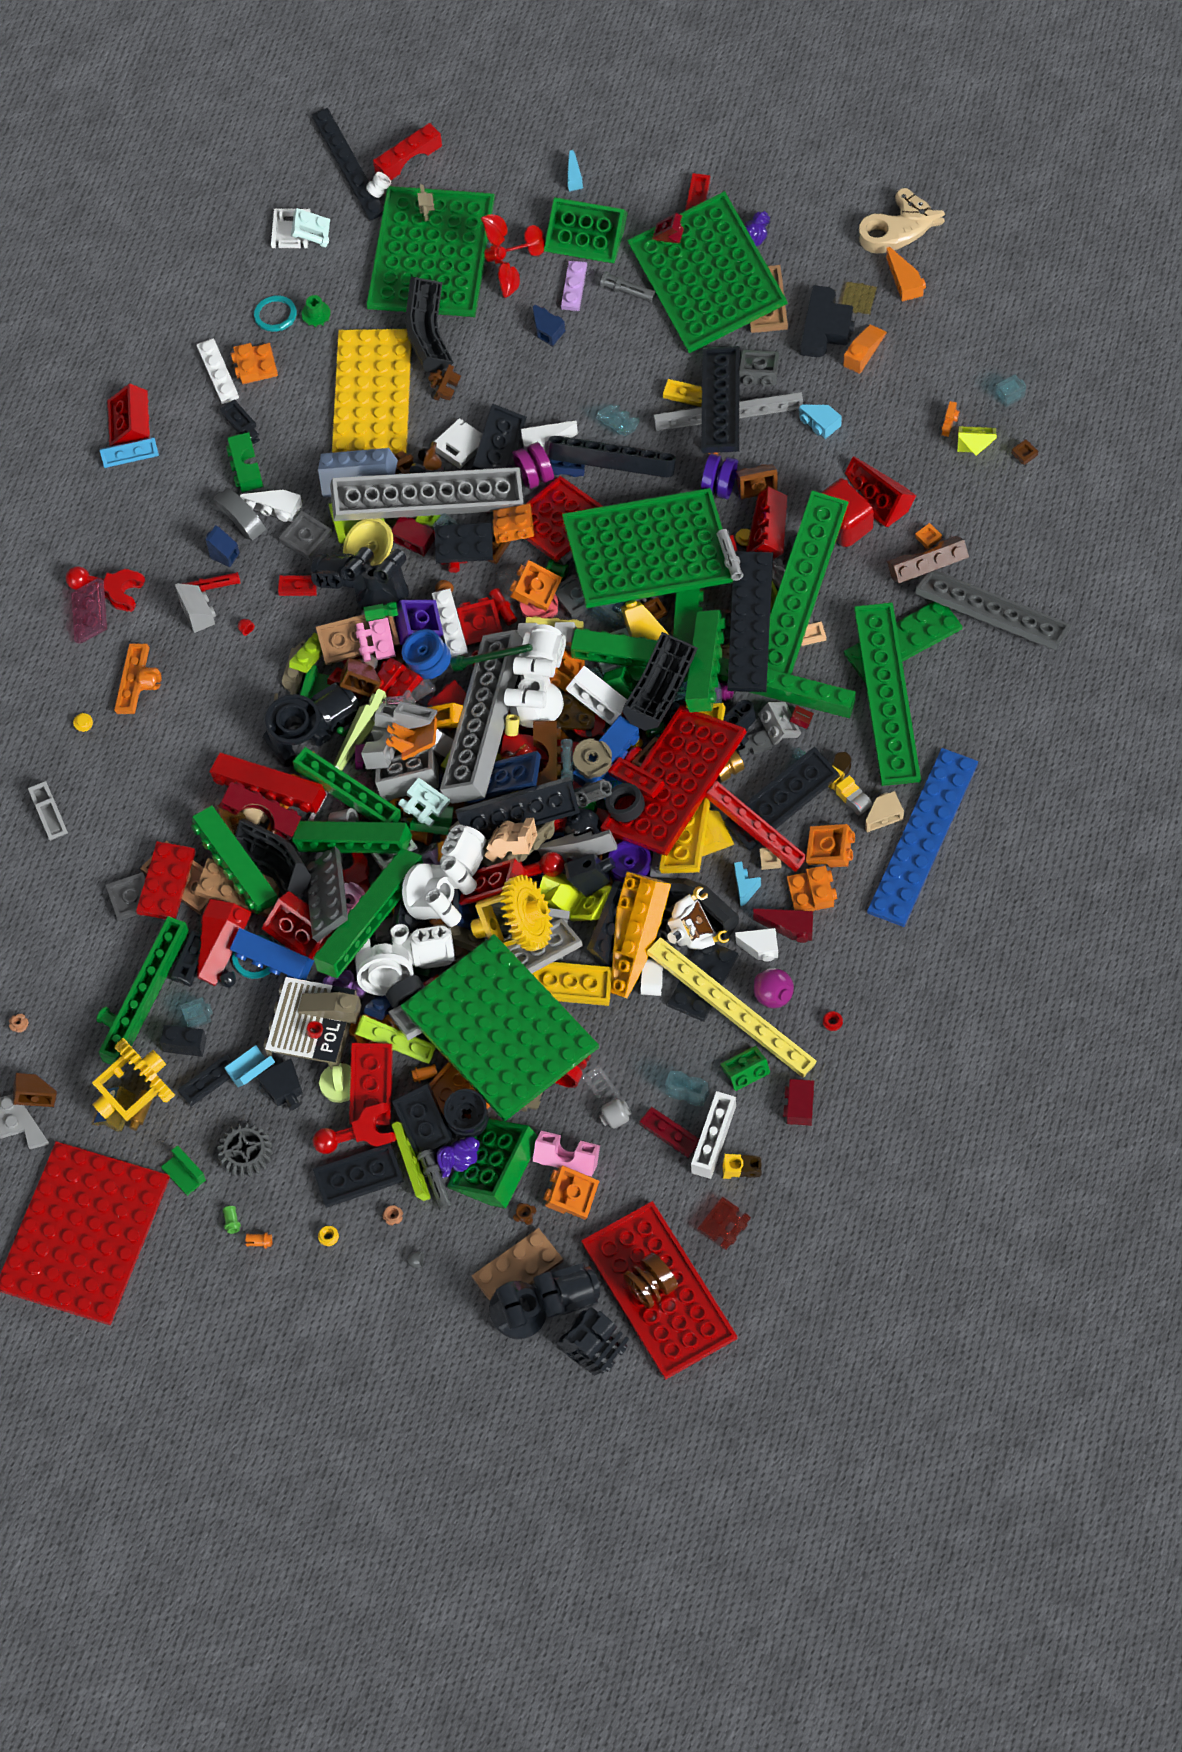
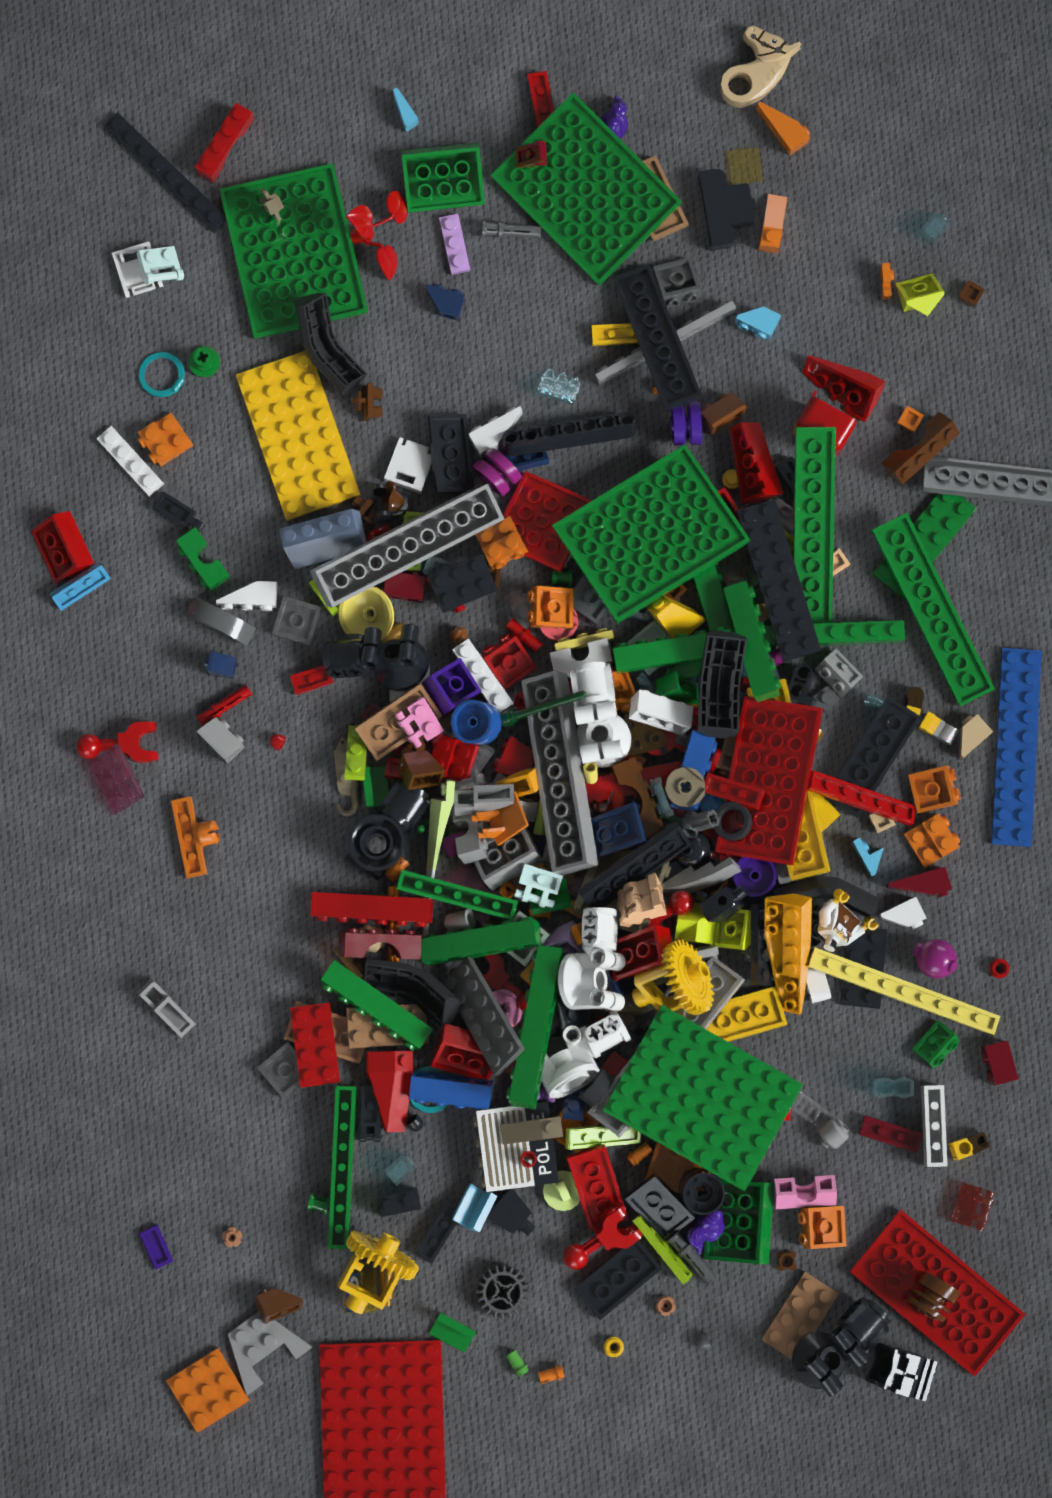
camera: 30 degrees left, 20 degrees up
(83, 722) = (159, 900): yellow plate -> none
(378, 185) = (211, 190): white wheel -> none
(380, 611) = (415, 693): green bar -> none
(731, 560) = (741, 526): light grey pin -> none
(801, 717) = (858, 660): dark red tile -> none

